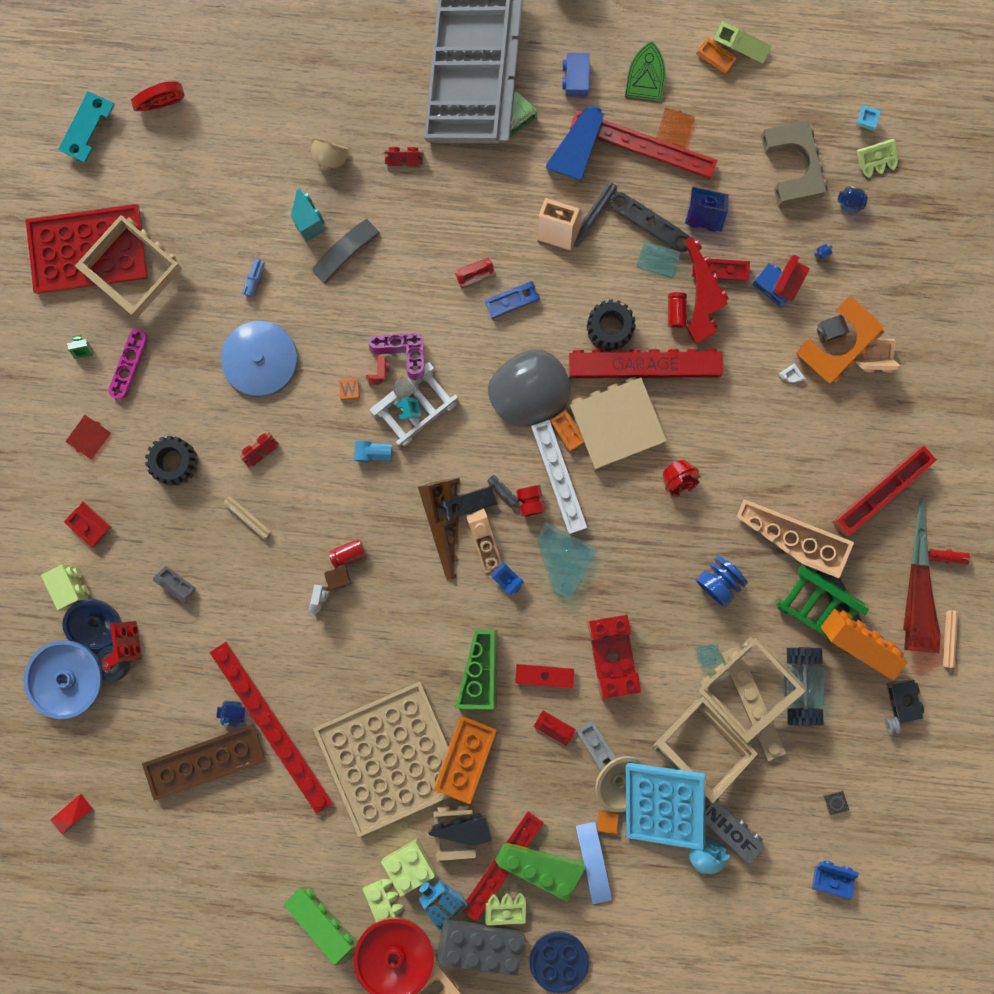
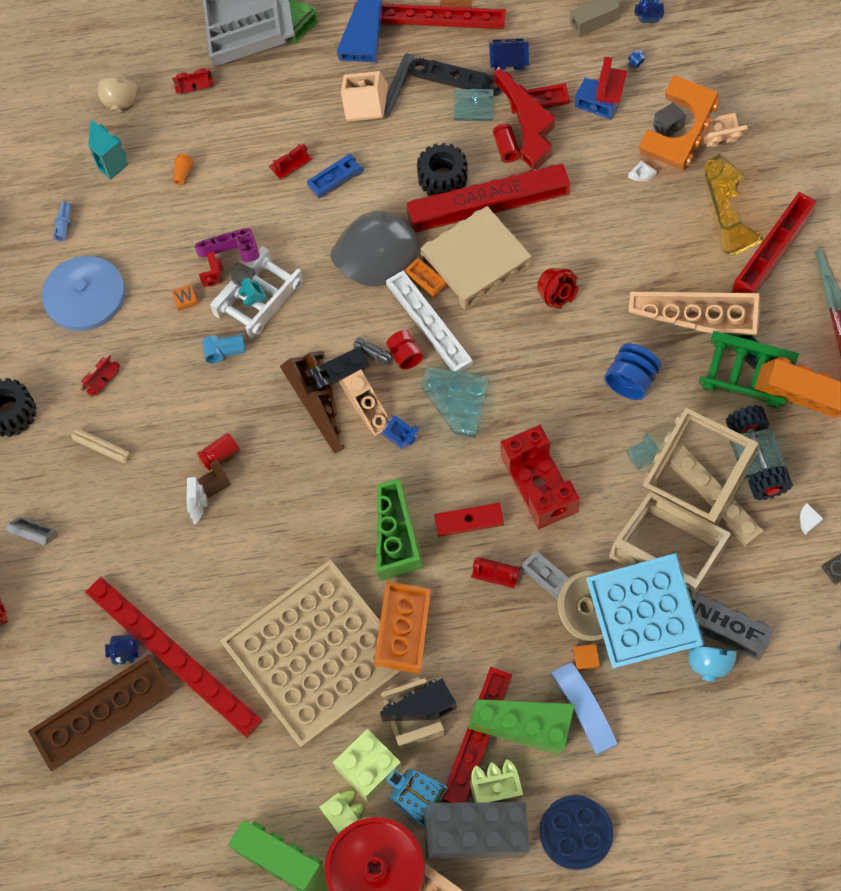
camera: 10 degrees left, 20 degrees down
(344, 249) = (148, 174): dark grey slope -> none
(373, 252) = (182, 167): none -> orange cone
(827, 752) = (809, 519): none -> white tile
(854, 418) = (721, 185): none -> clear yellow windscreen

